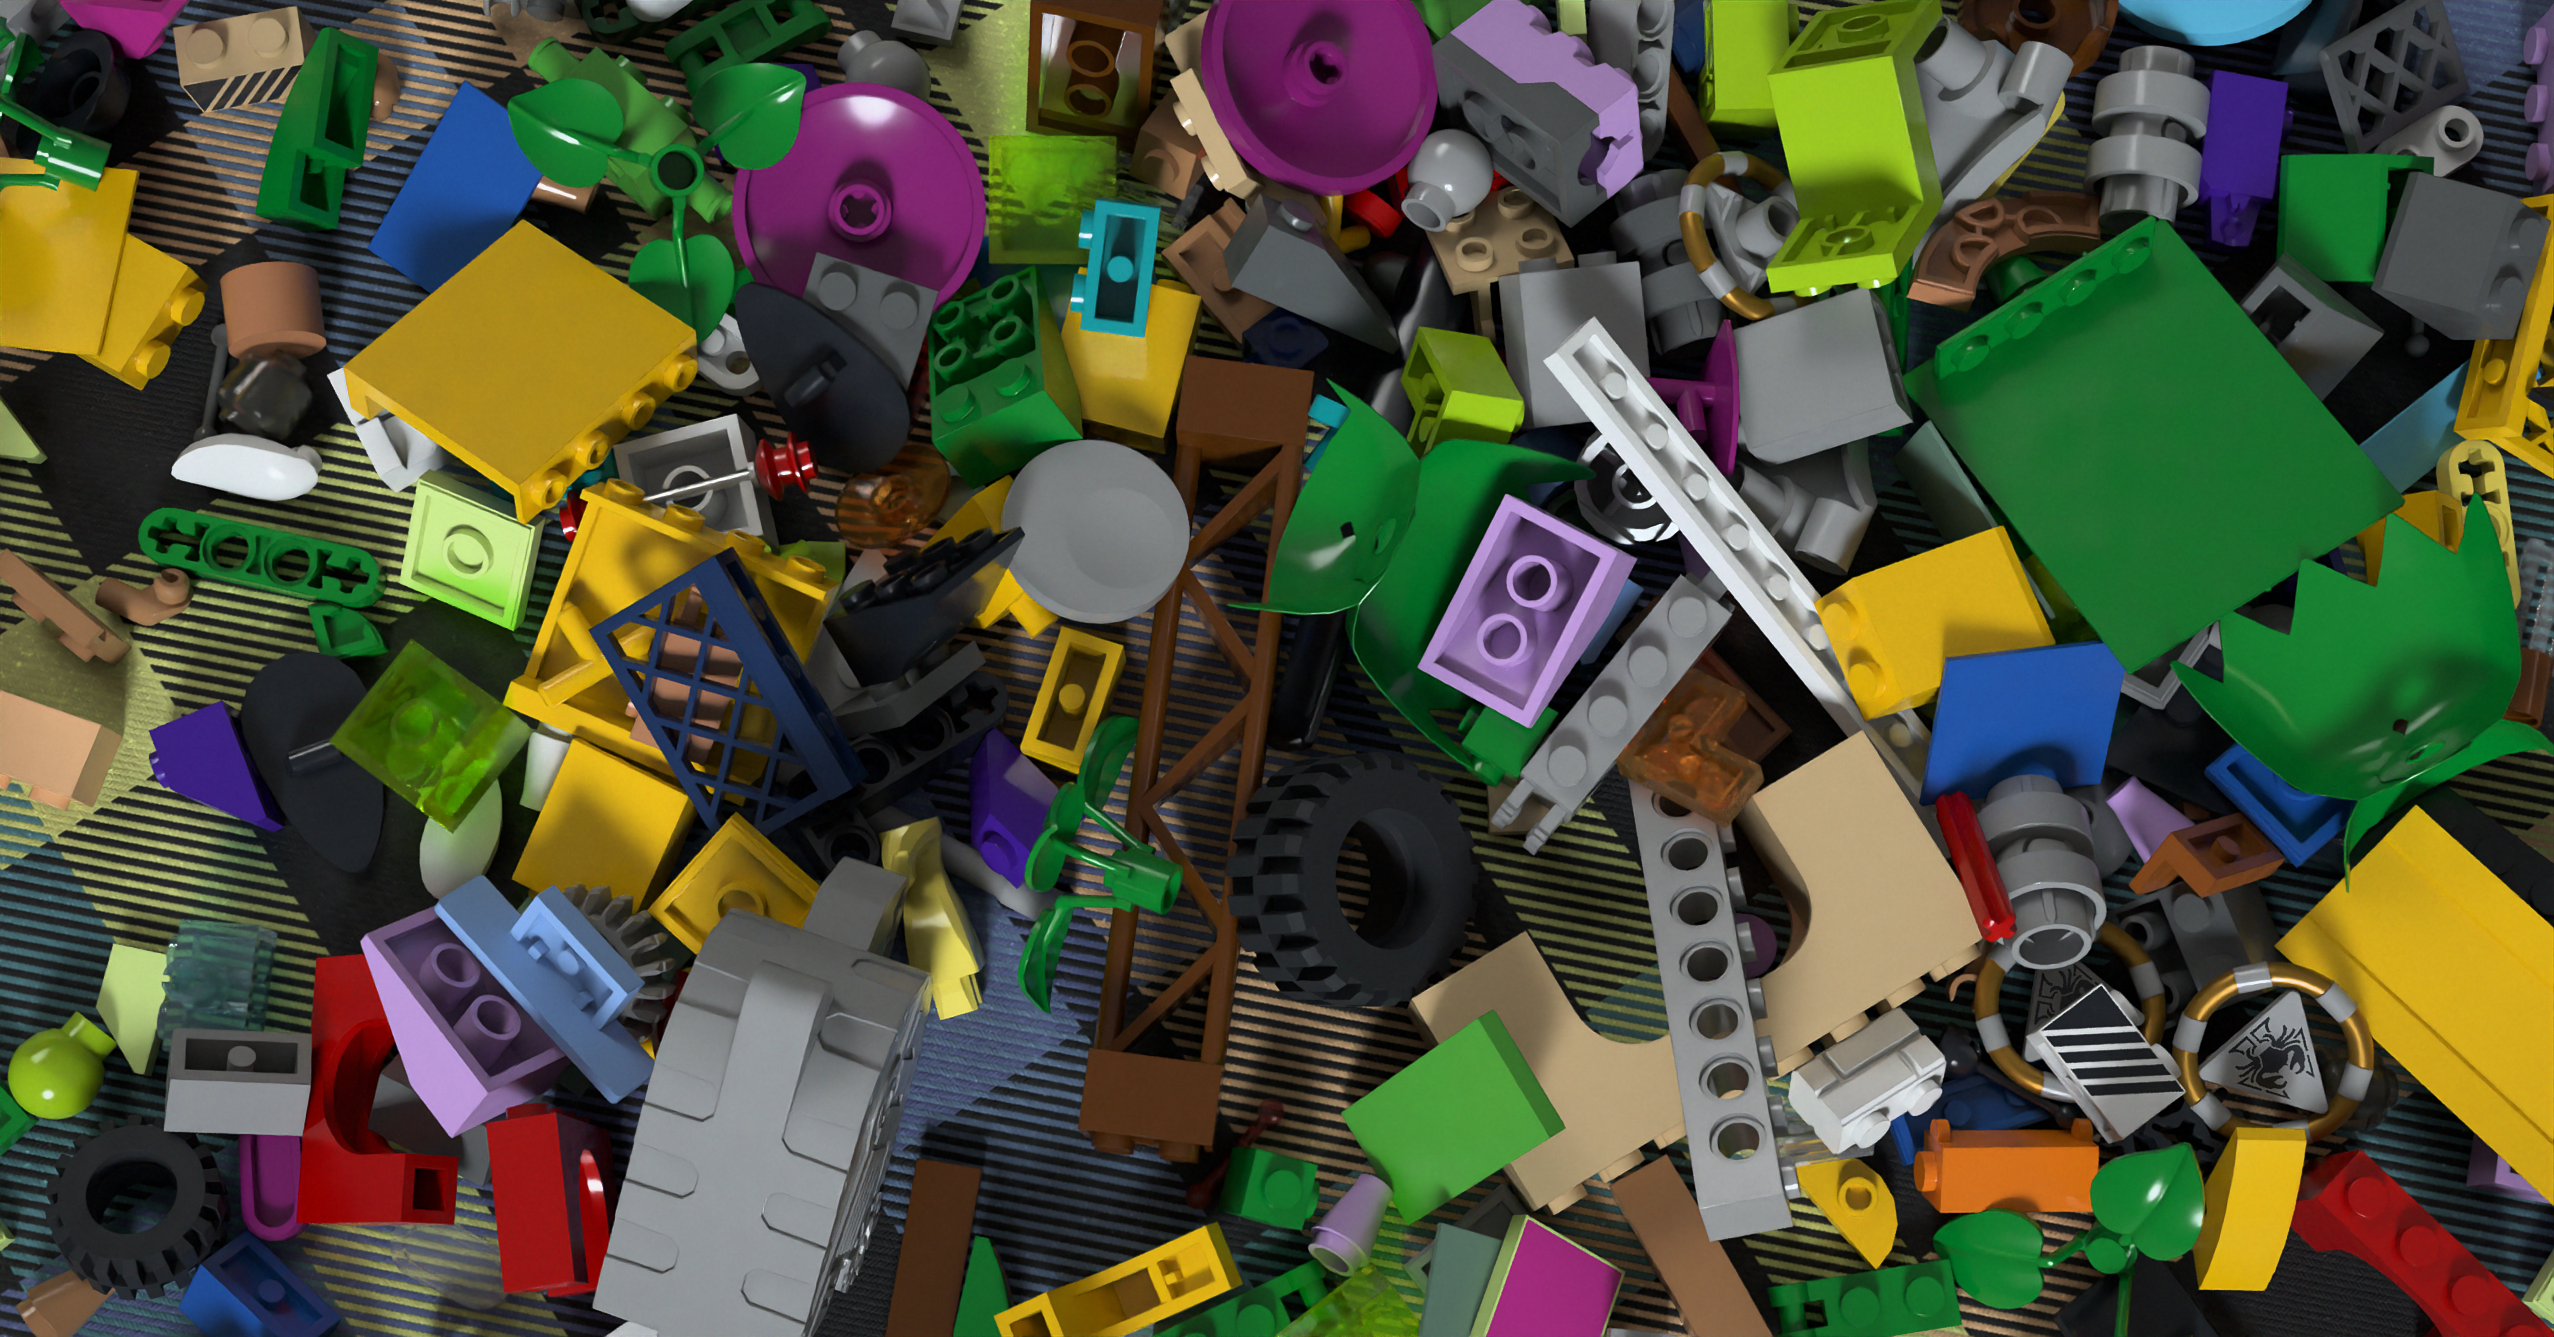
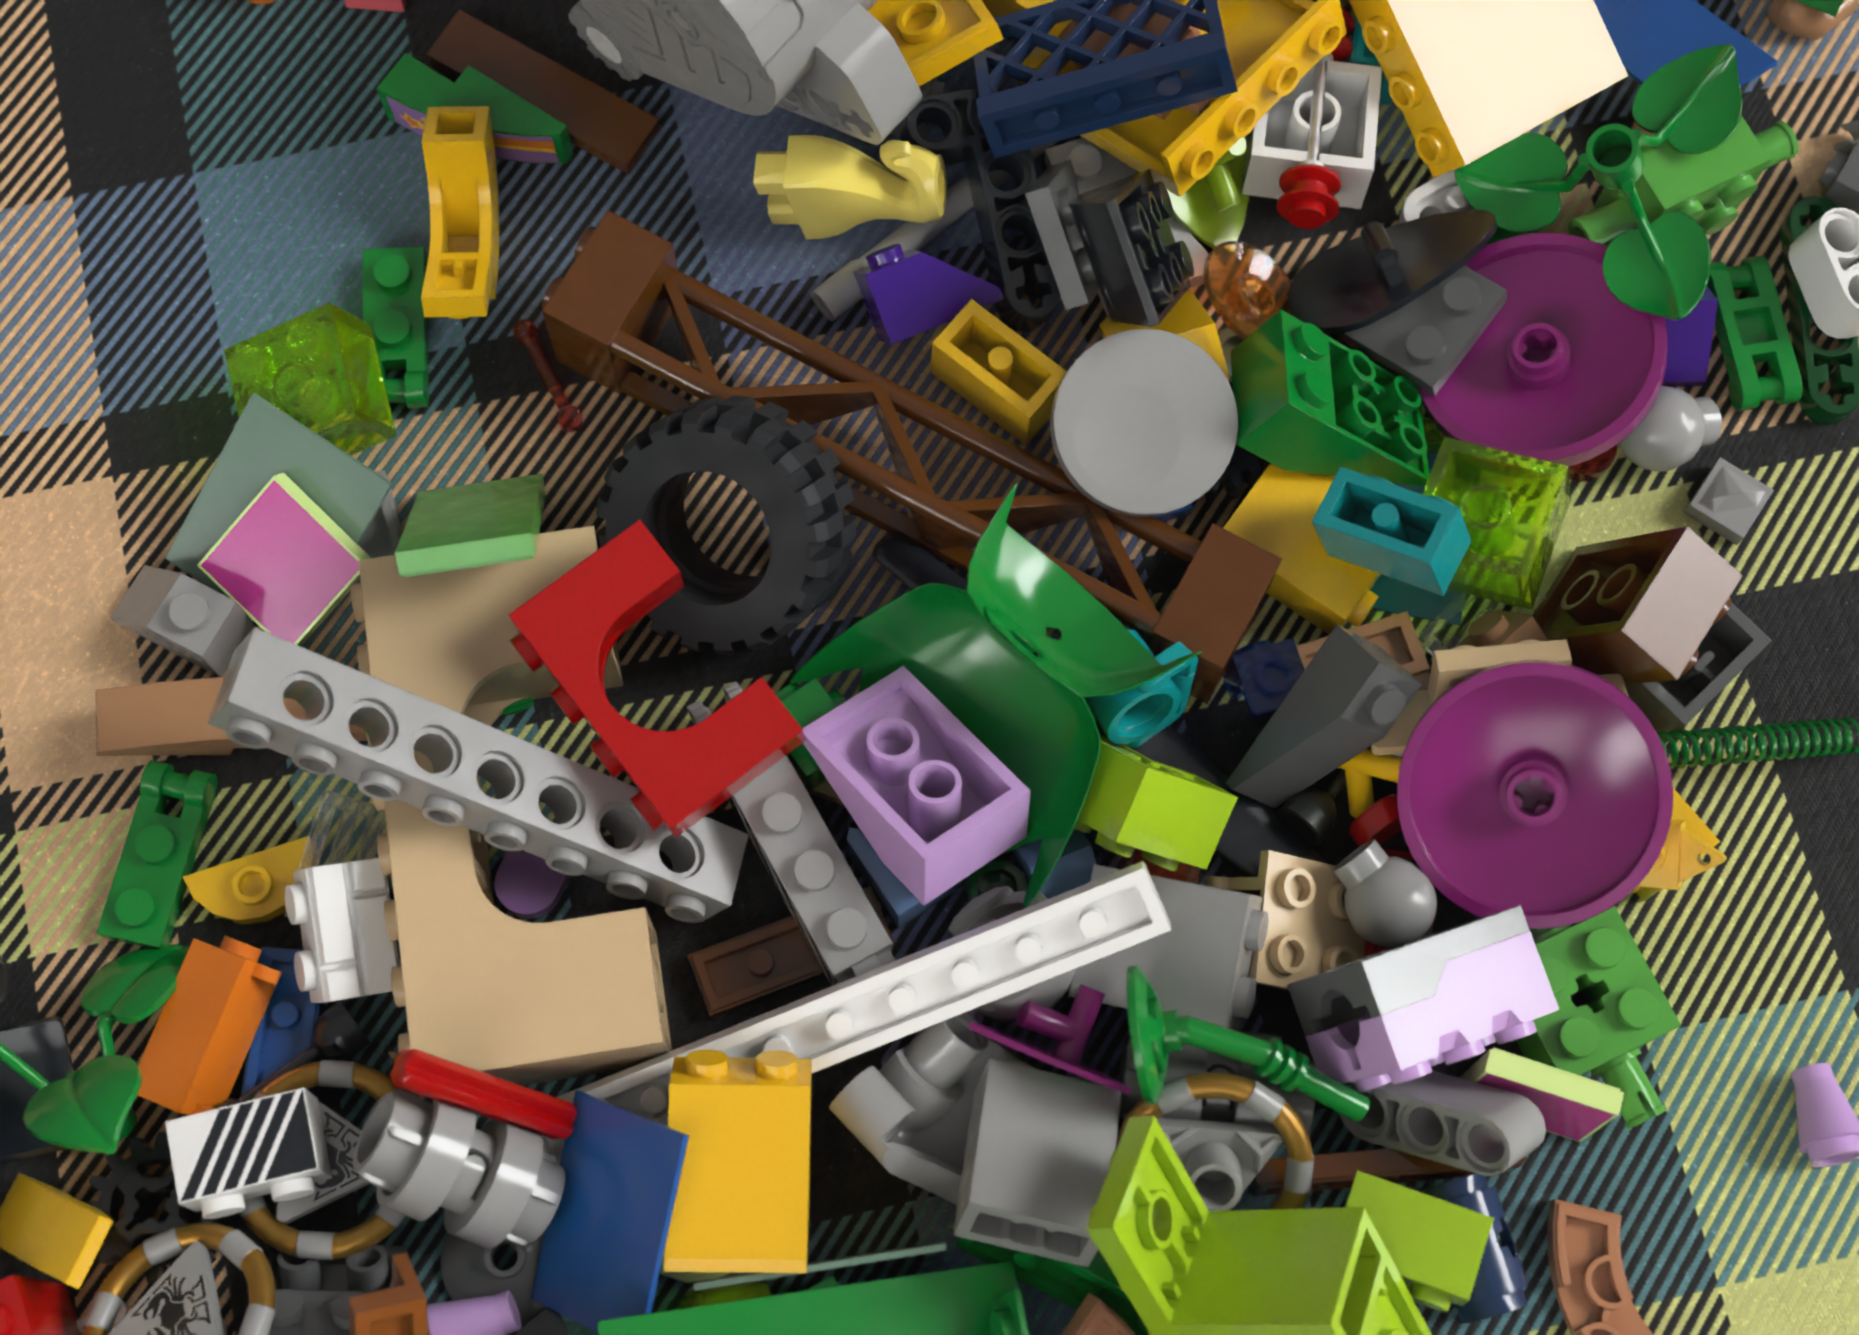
camera: 110 degrees right, 5 degrees down
(1134, 875) = (811, 336): green plant -> none
(1269, 1188) = (497, 377): green brick -> none
(1350, 1228) = (436, 437): lavender cone -> none
(1621, 810) = (678, 771): none -> red arch
(1655, 207) = (1162, 1032): none -> green dish
(1681, 755) = (717, 864): clear orange plate -> none

